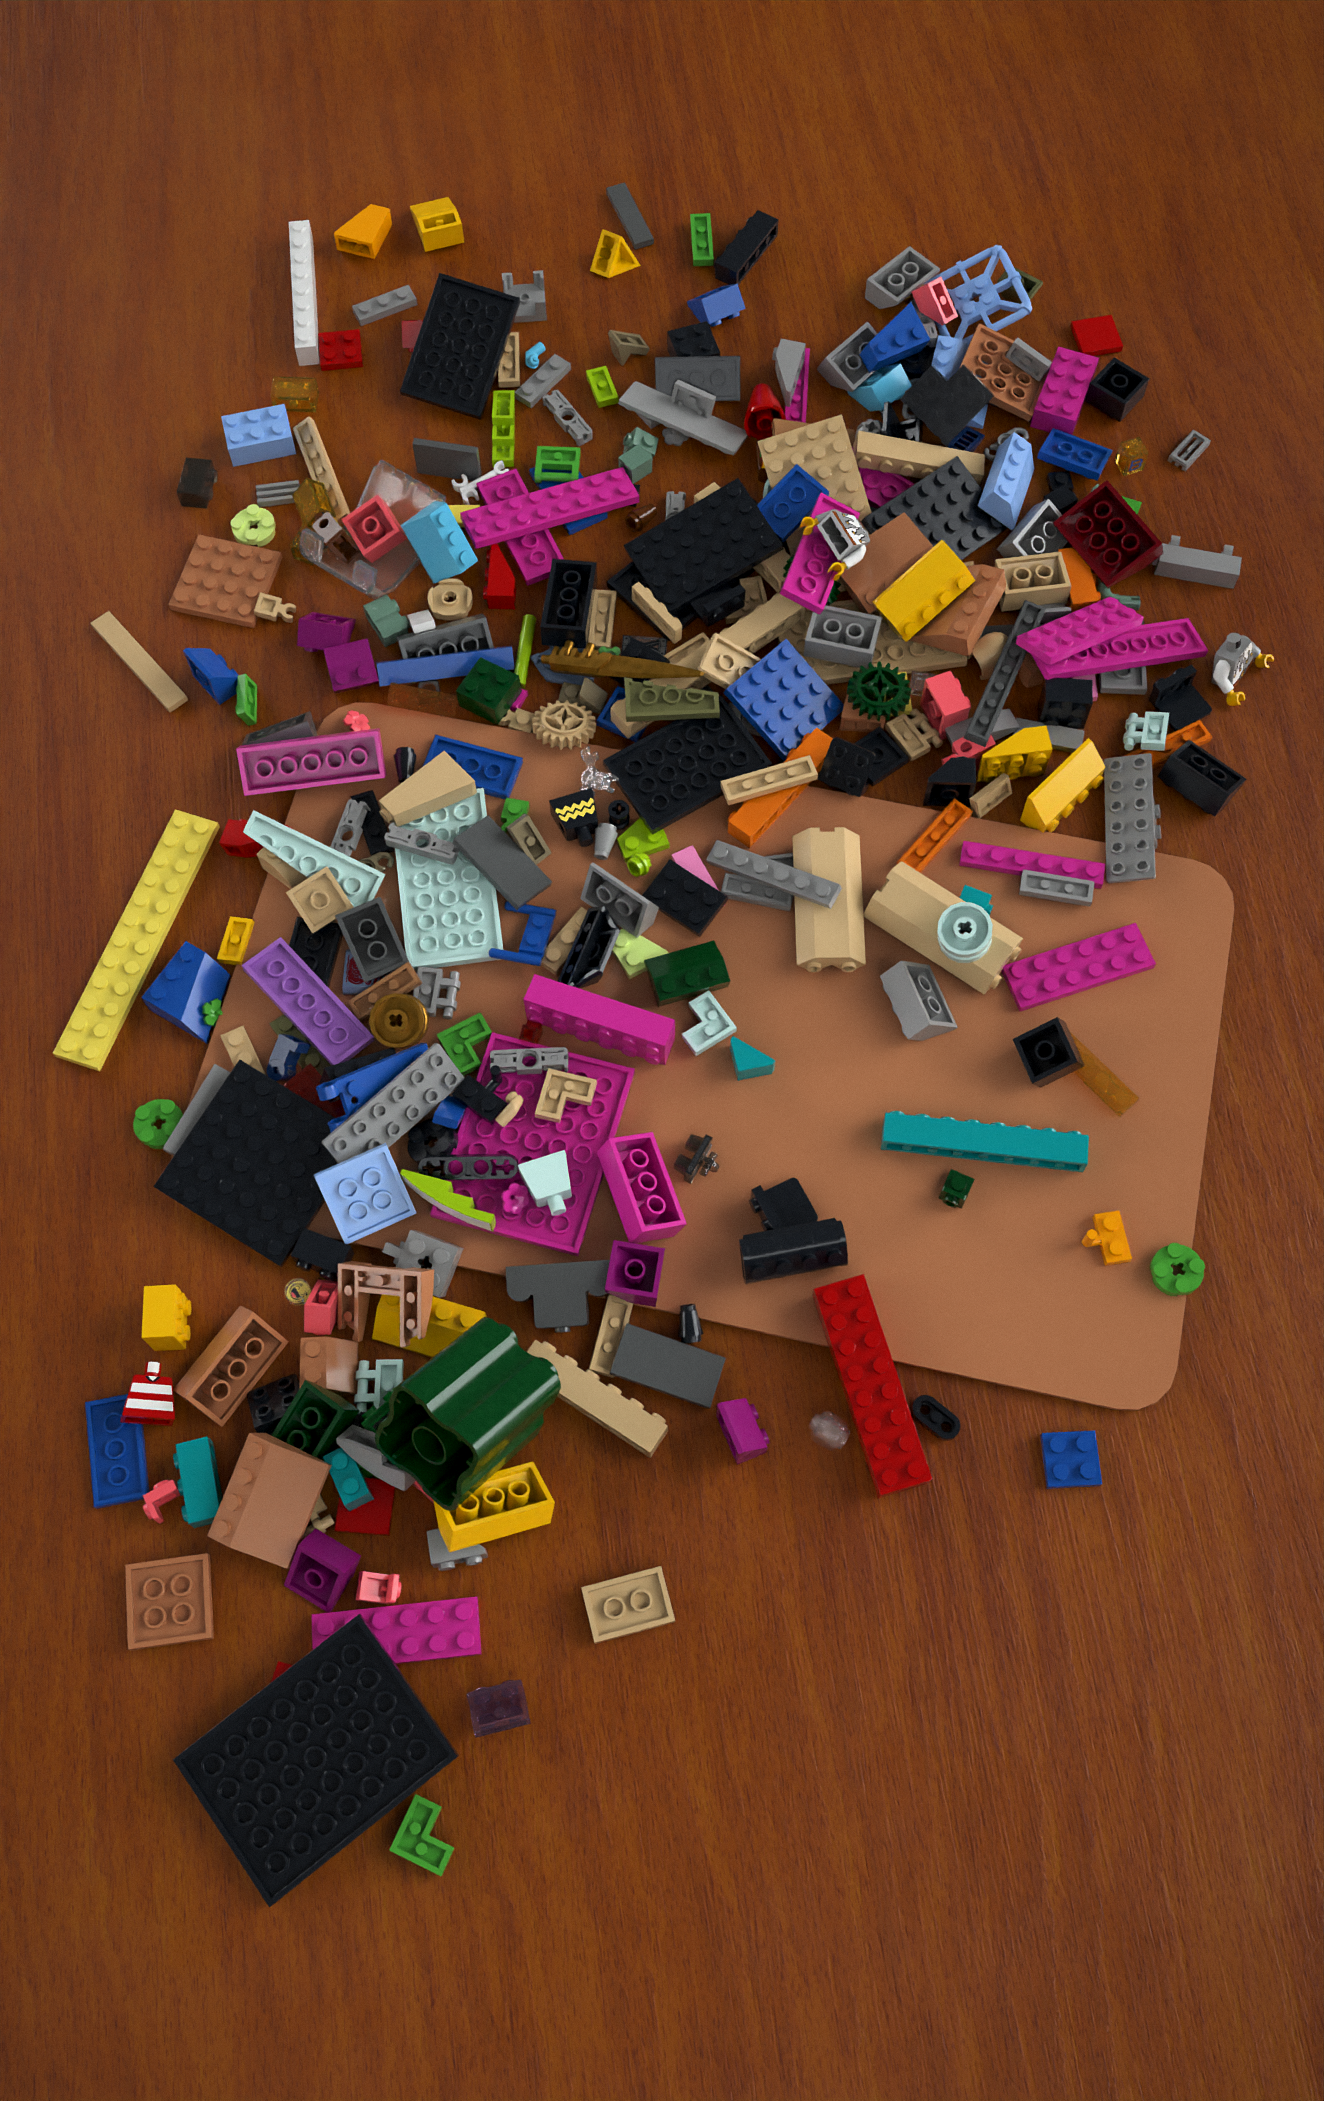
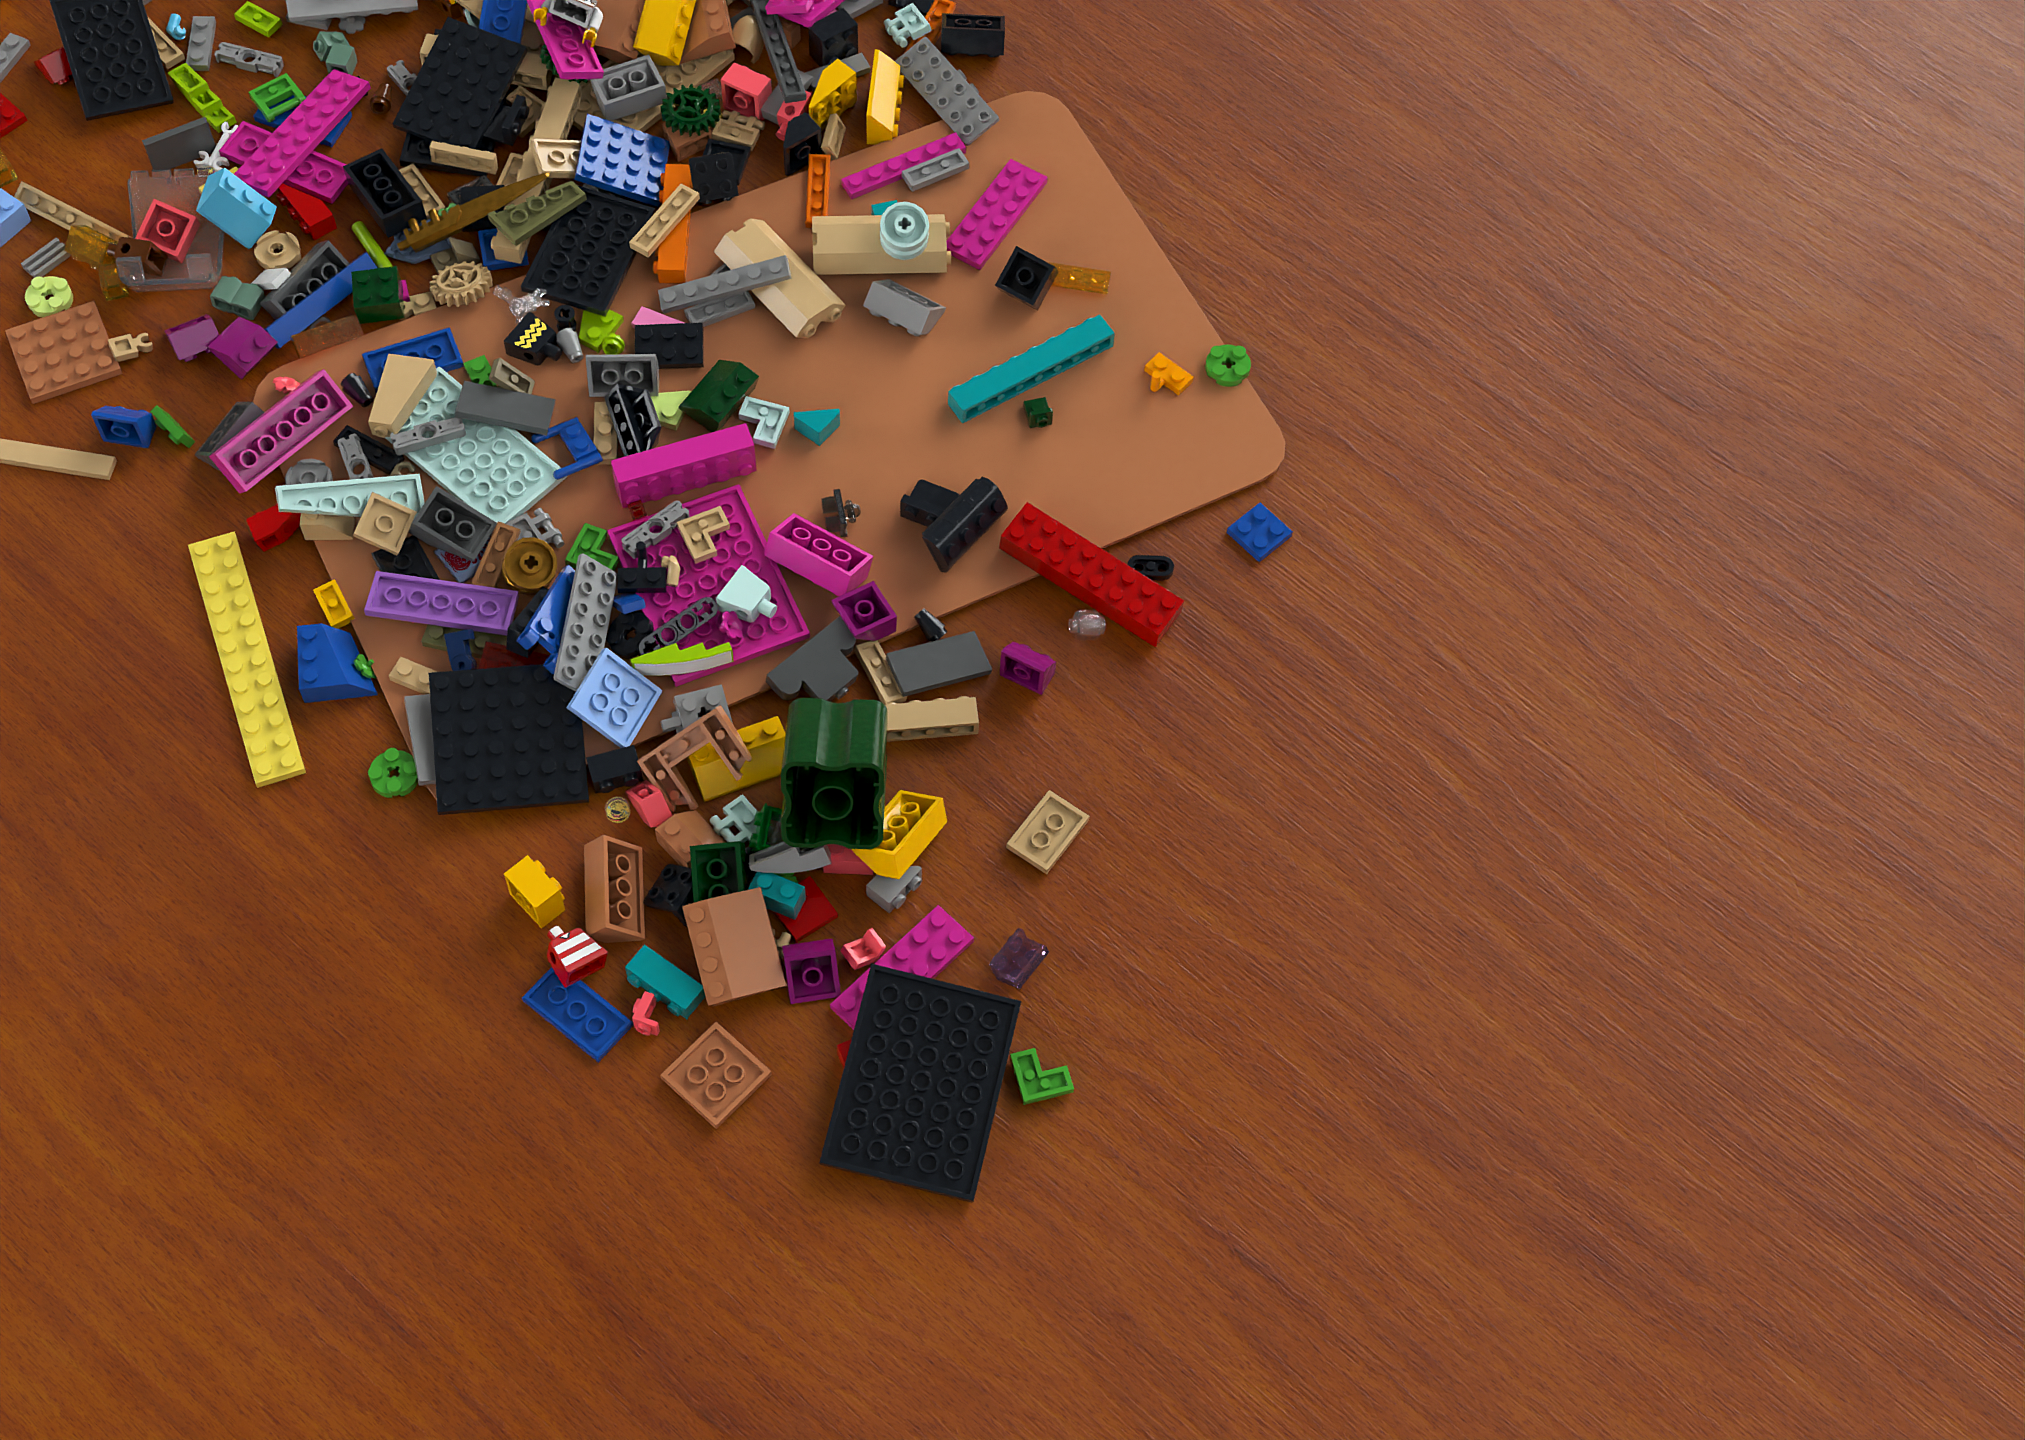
camera: 45 degrees left, 5 degrees down
(309, 824) = (311, 472): none -> light grey tile

